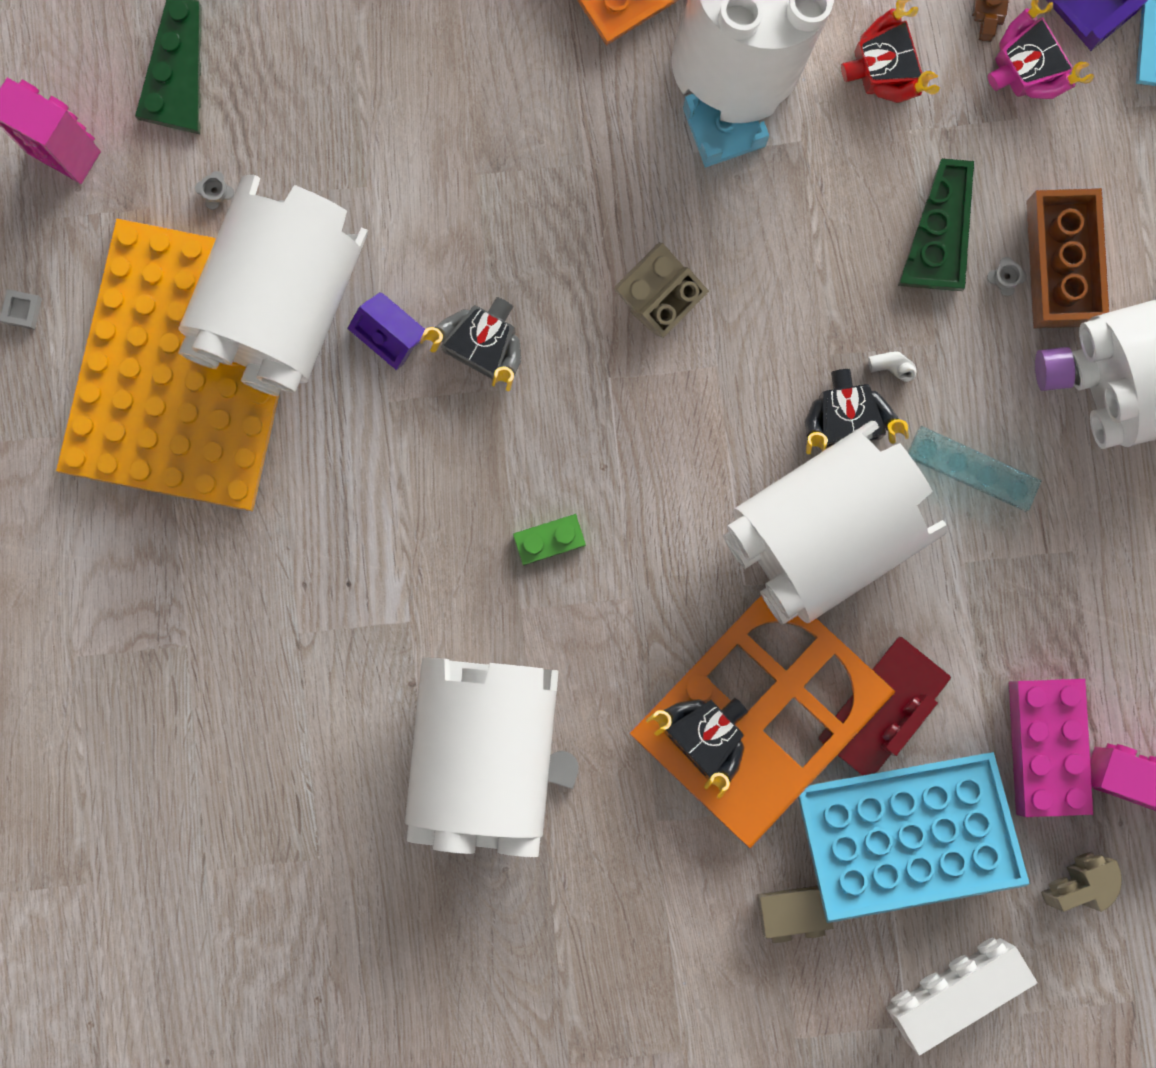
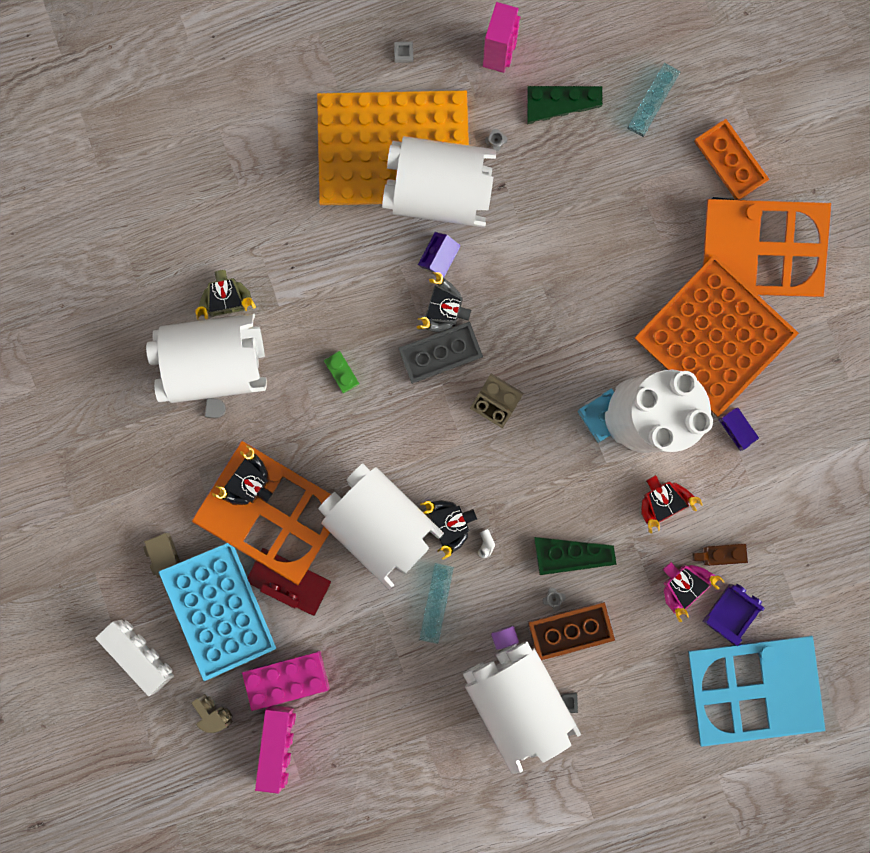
camera: 85 degrees right, 0 degrees up
(373, 709) = (224, 297): none -> torso
(556, 365) = (440, 352): none -> dark grey plate

